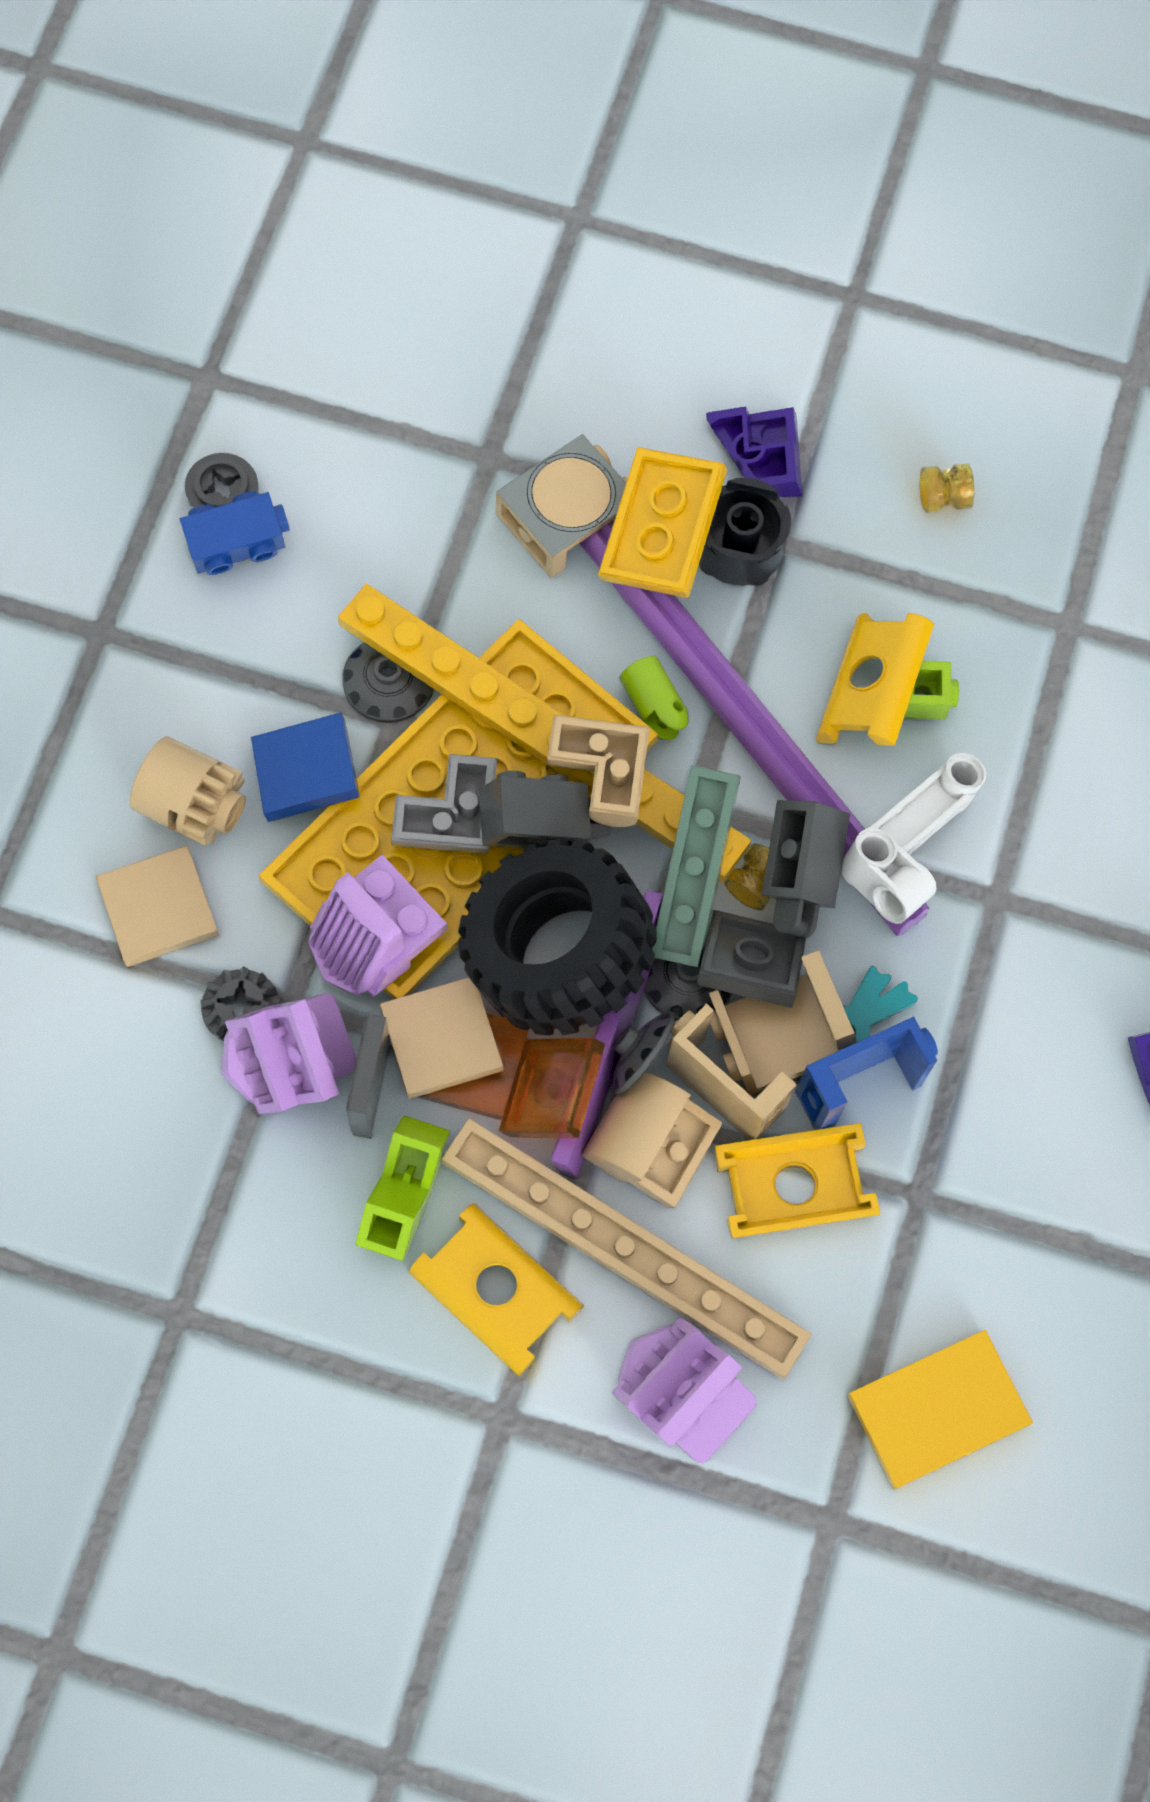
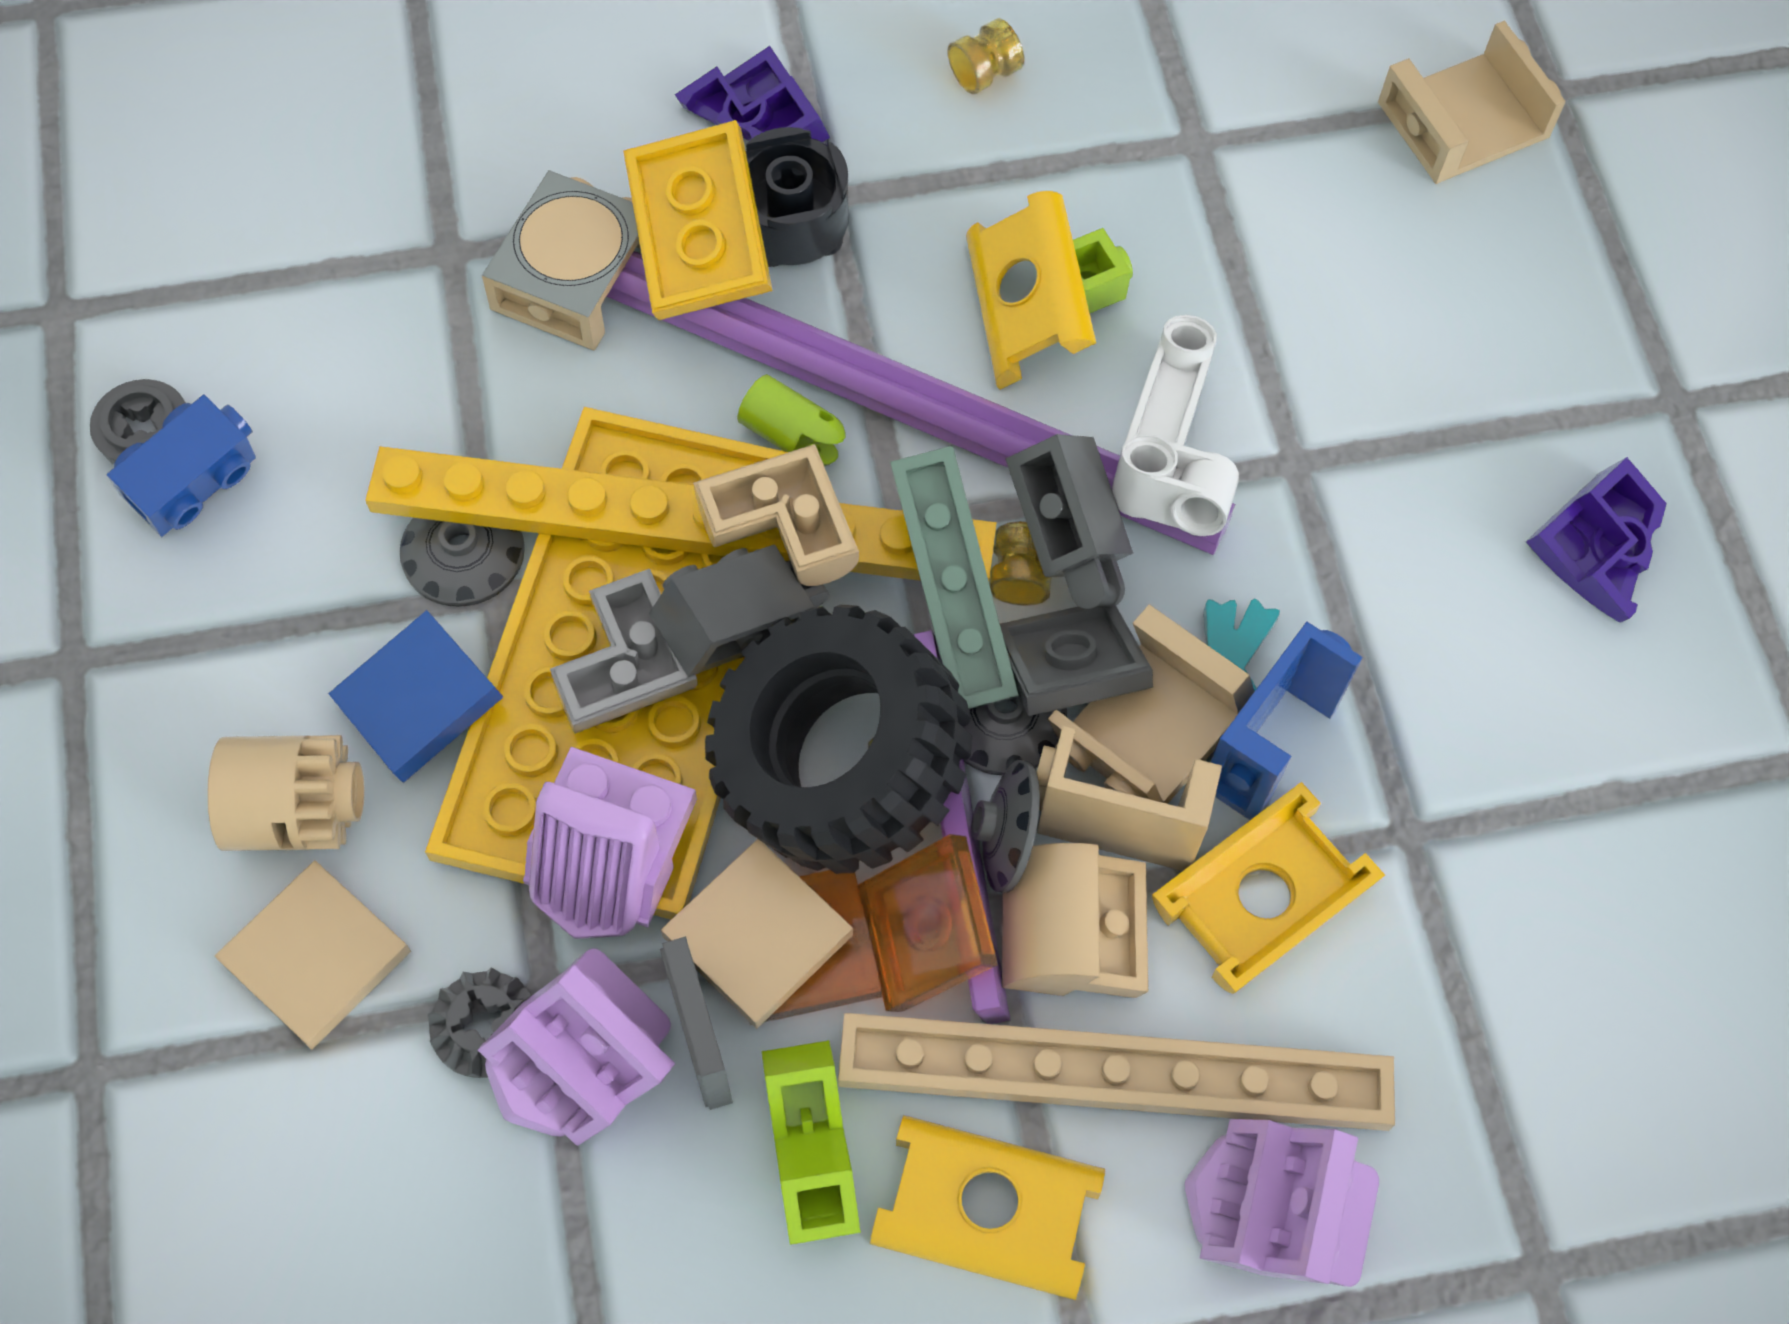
camera: 25 degrees left, 5 degrees down
(939, 1409) = (1583, 1069): yellow tile -> none

